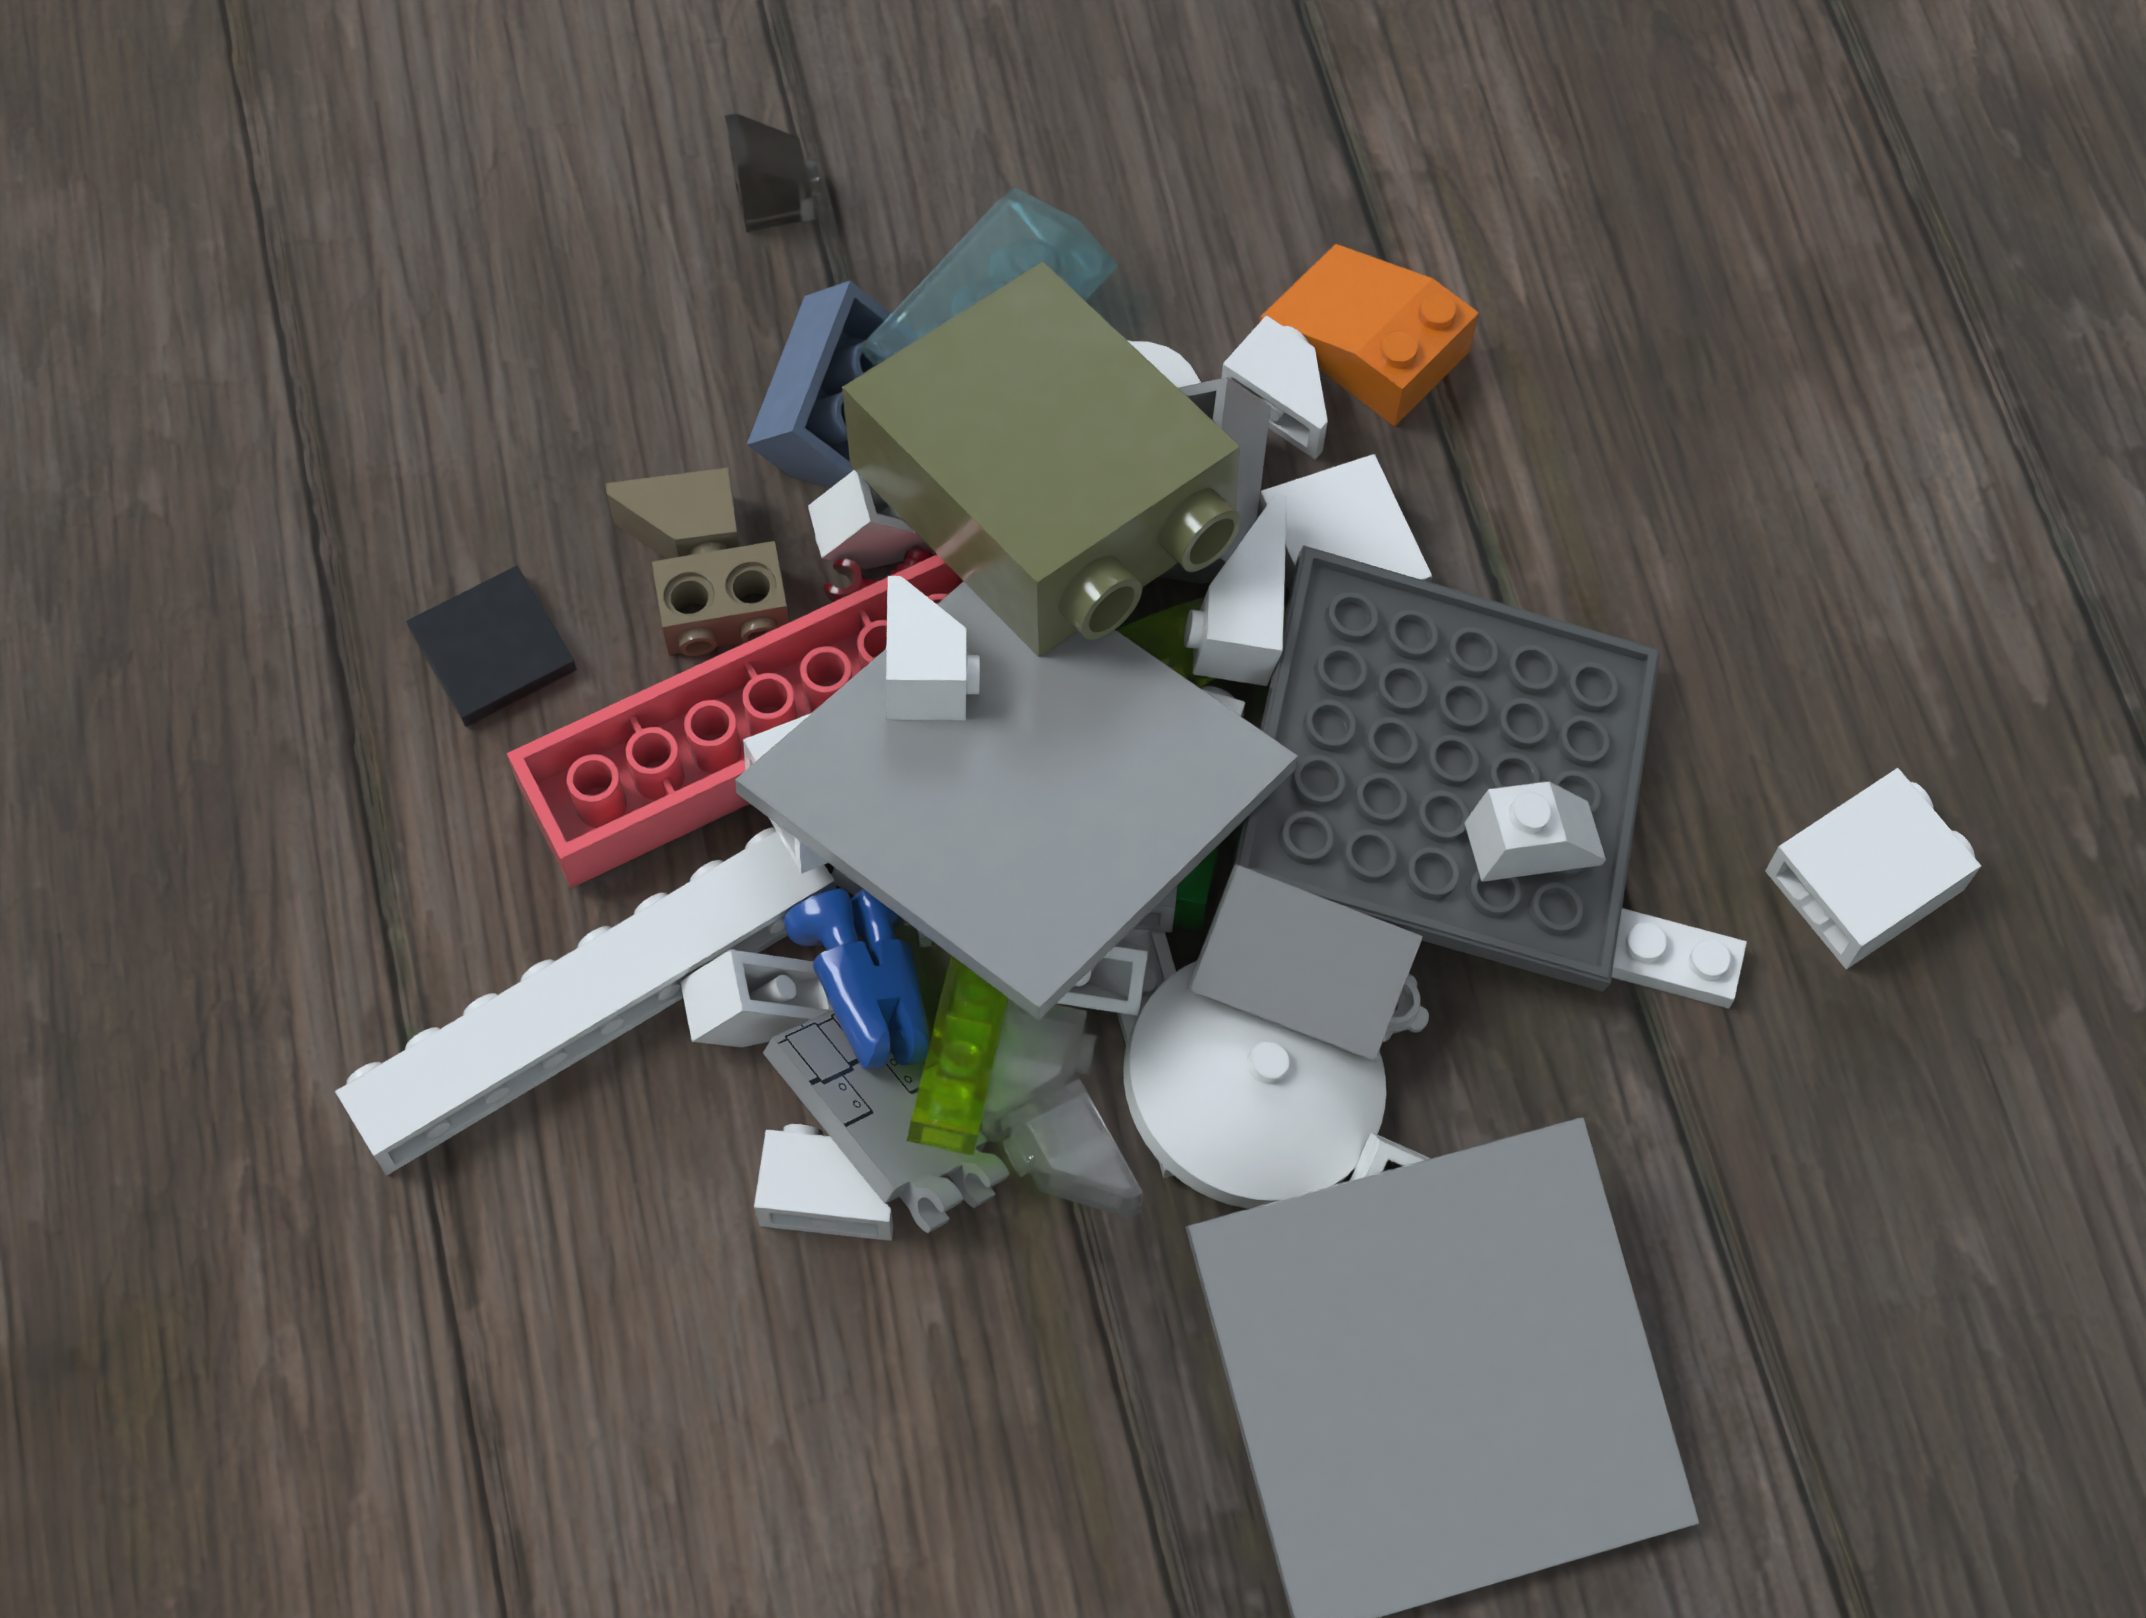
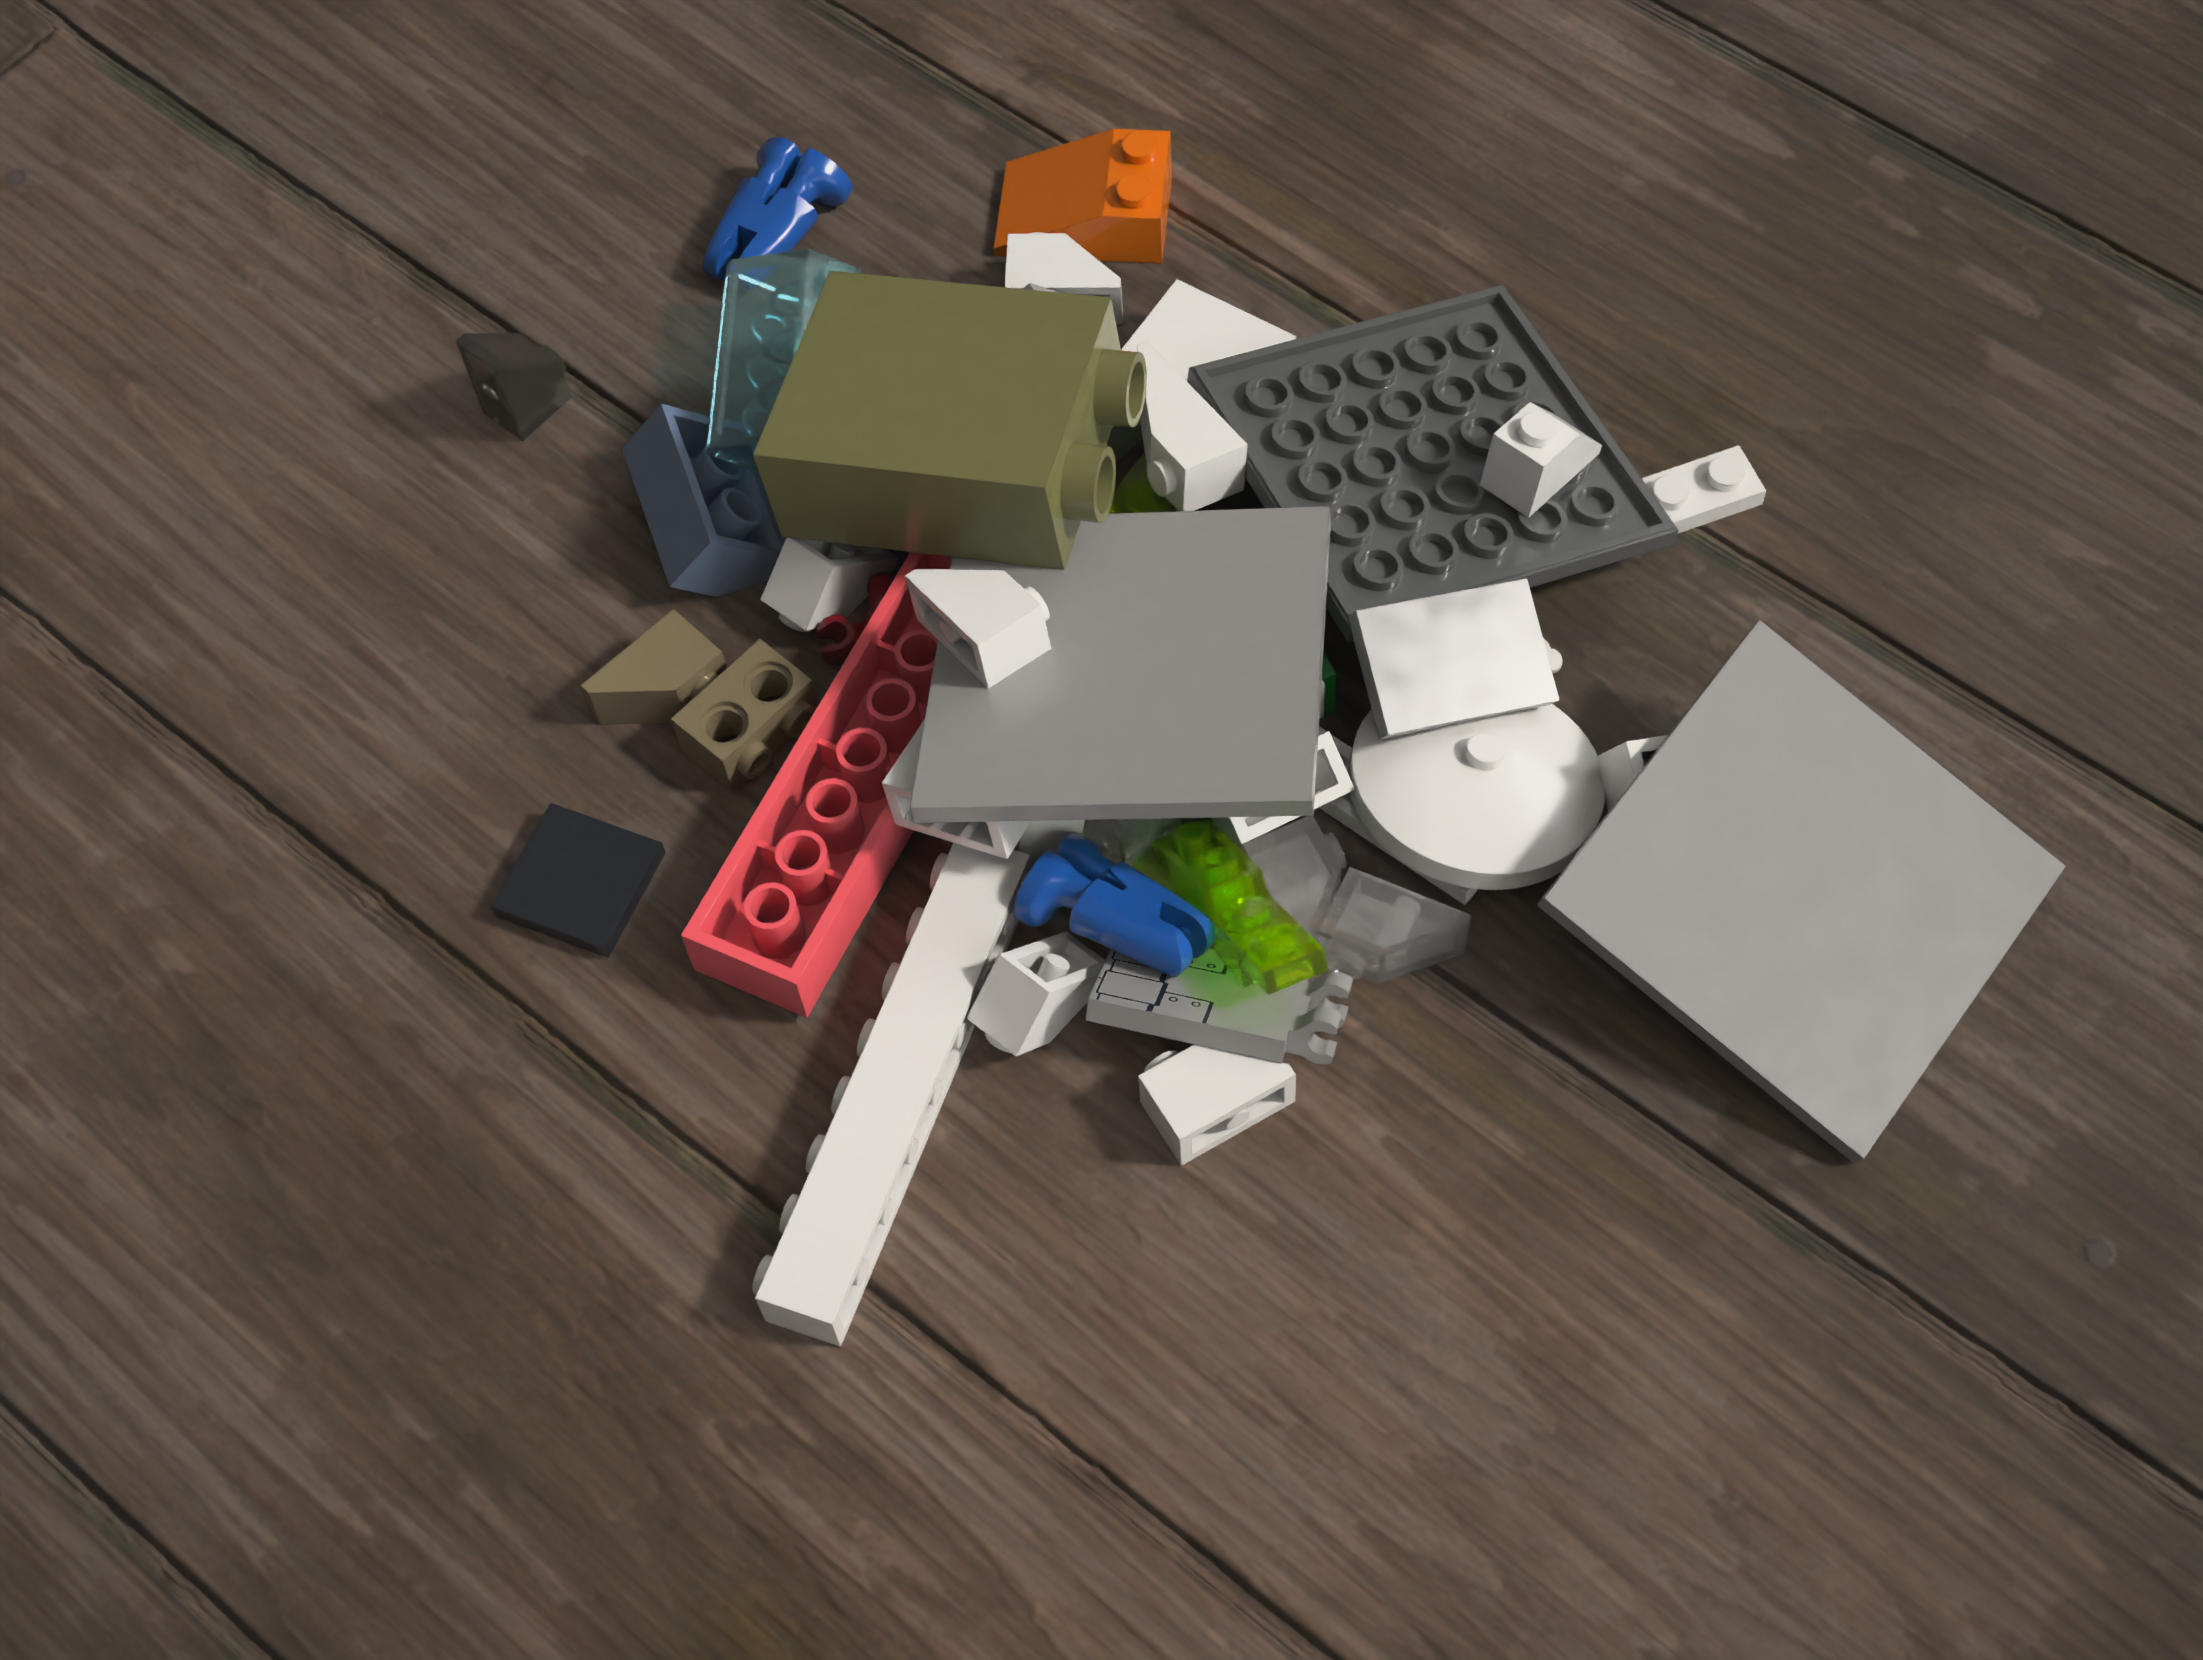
camera: 30 degrees left, 5 degrees down
(1085, 168) = (774, 207): none -> blue piece
(1873, 867) = (1781, 336): white brick -> none

